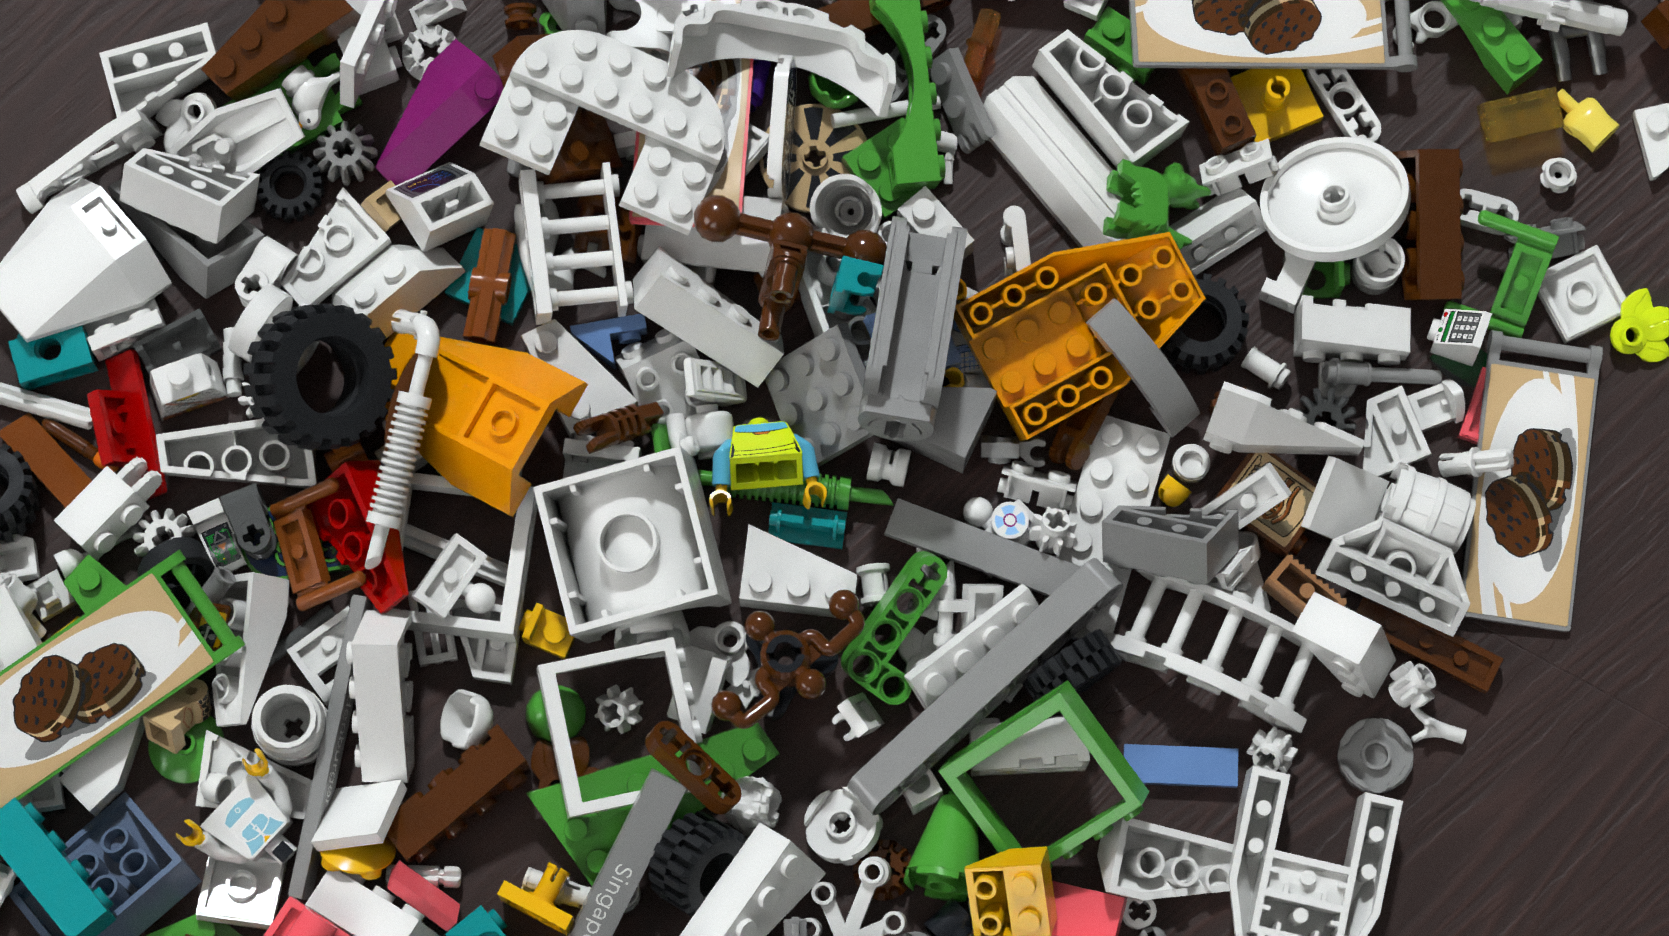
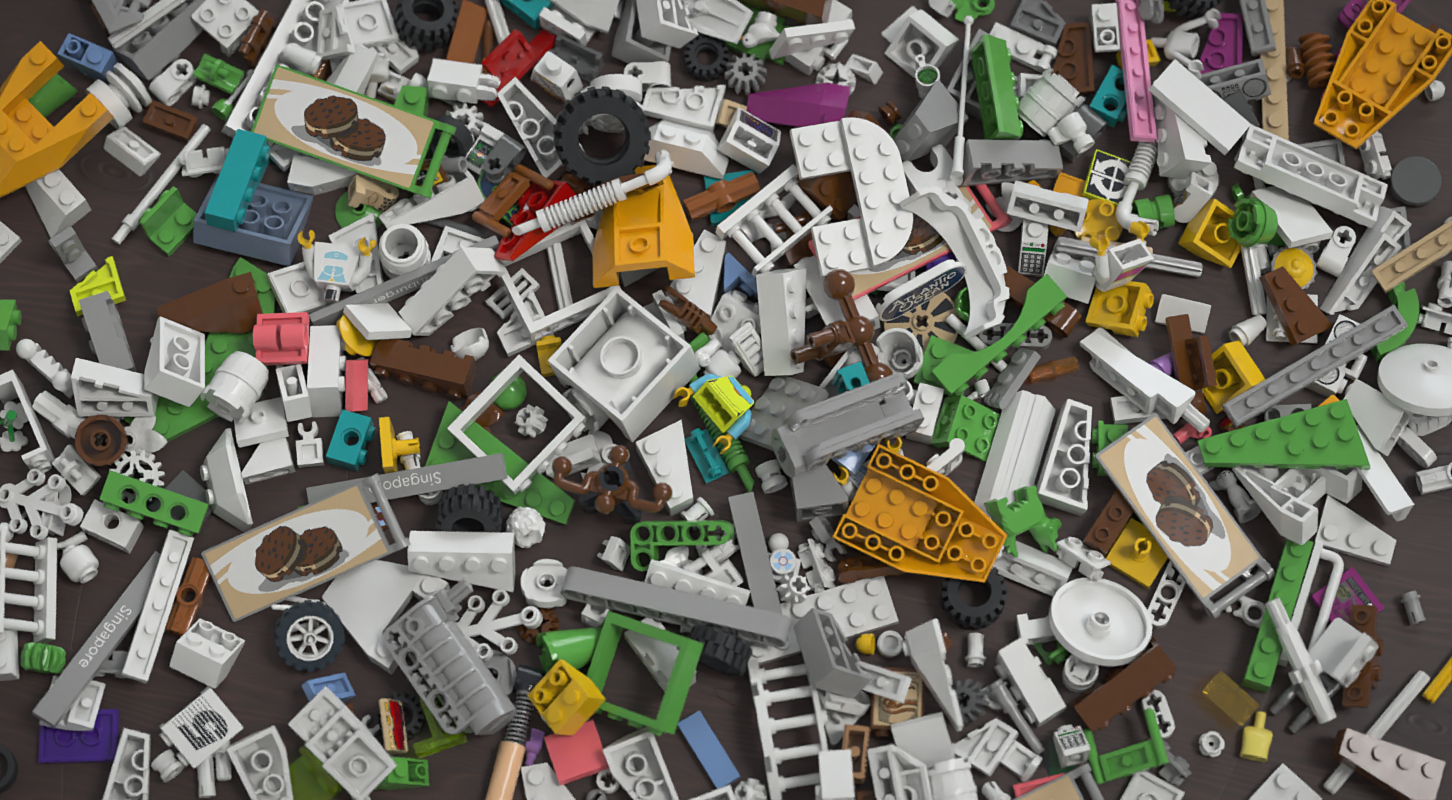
camera: 60 degrees right, 5 degrees down
(217, 787) = (346, 234): white hinge -> none
(451, 577) = (539, 279): white plate -> none
(677, 767) = (509, 481): reddish brown beam -> none
(980, 192) = (969, 422): none -> bright green bracket
(1145, 365) = (921, 575): light grey slope -> none

